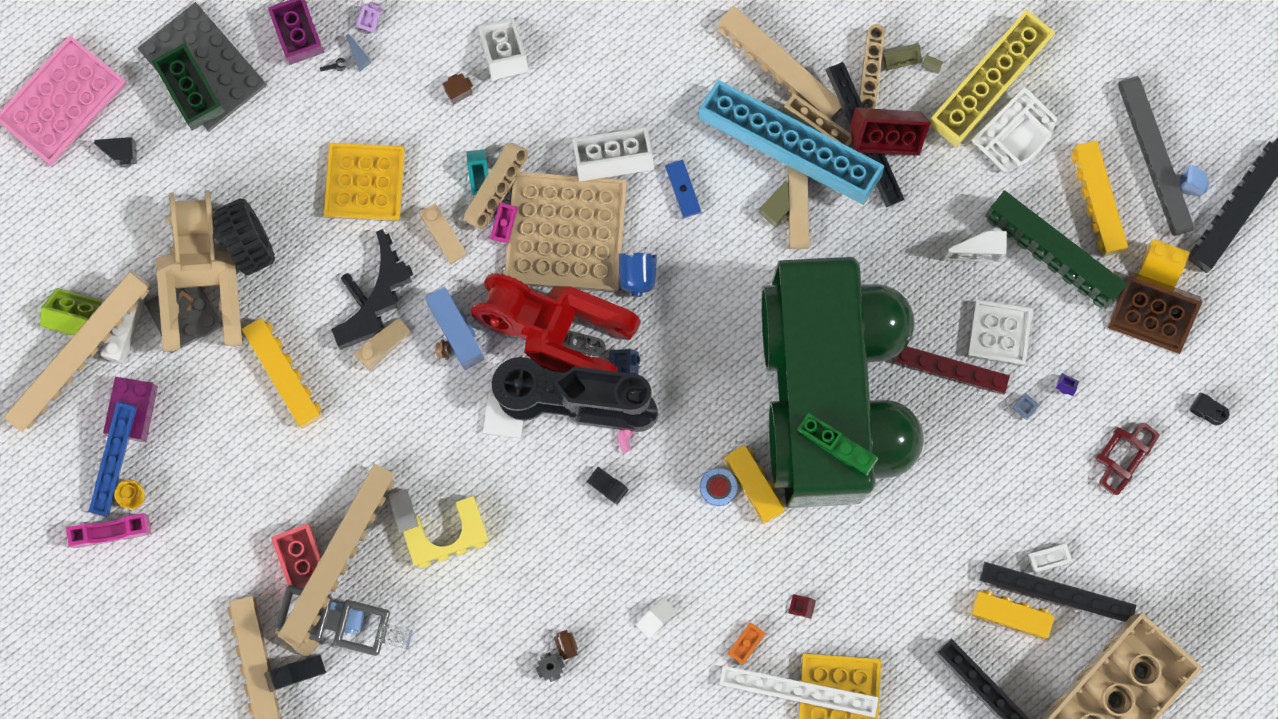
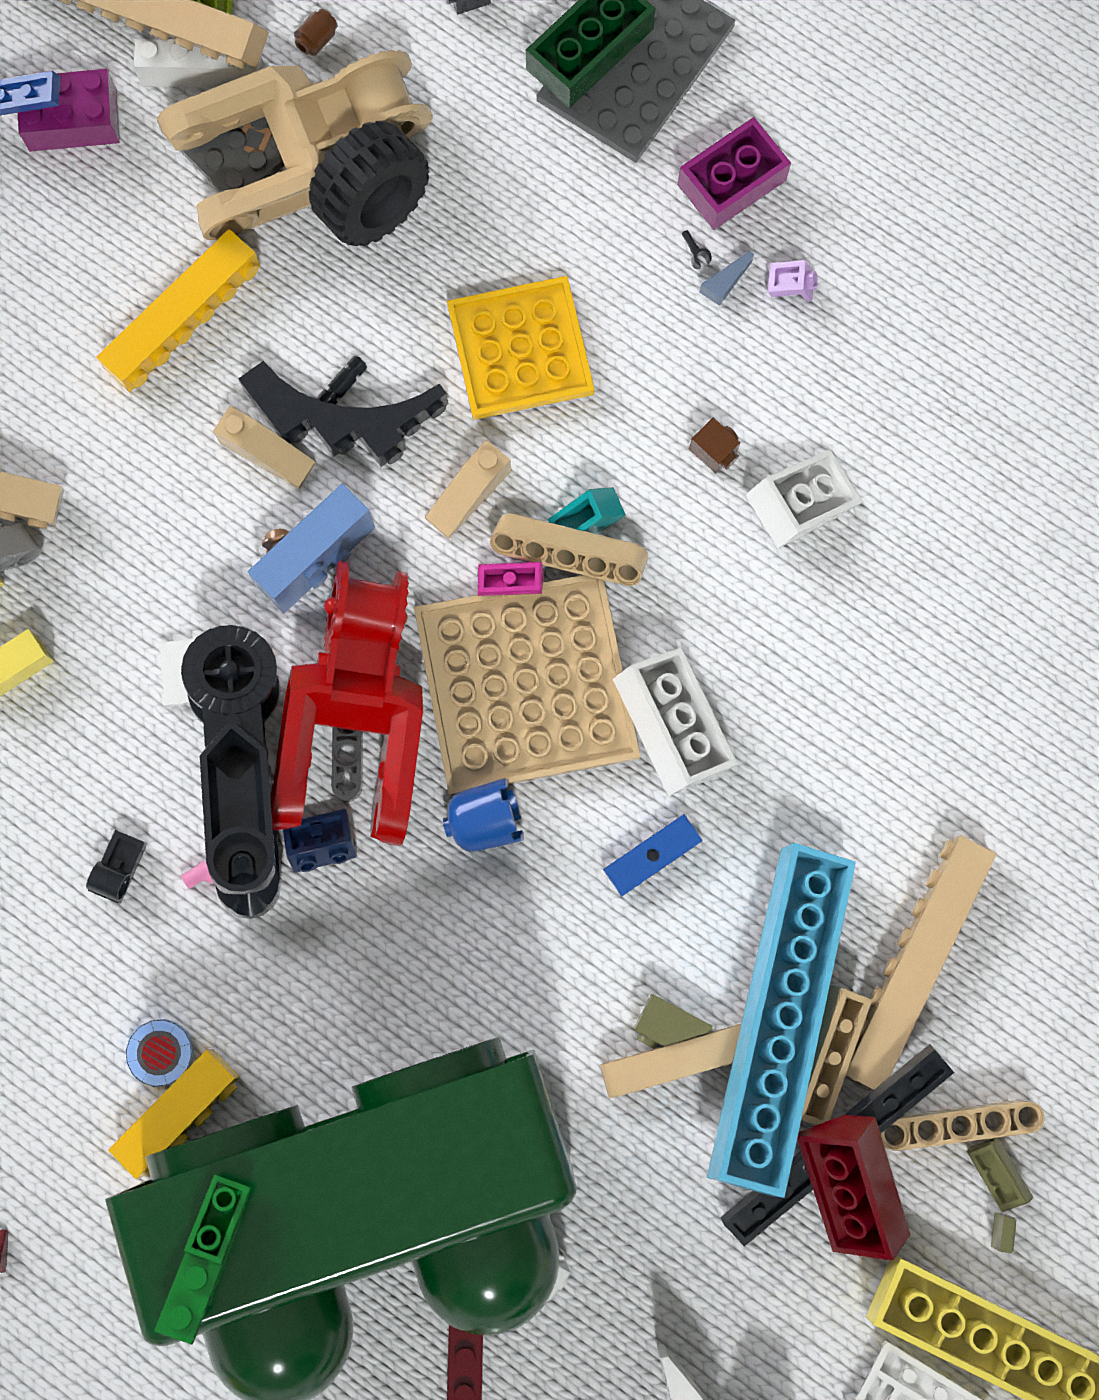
camera: 75 degrees right, 0 degrees up
(125, 249) = (315, 32): none -> reddish brown brick

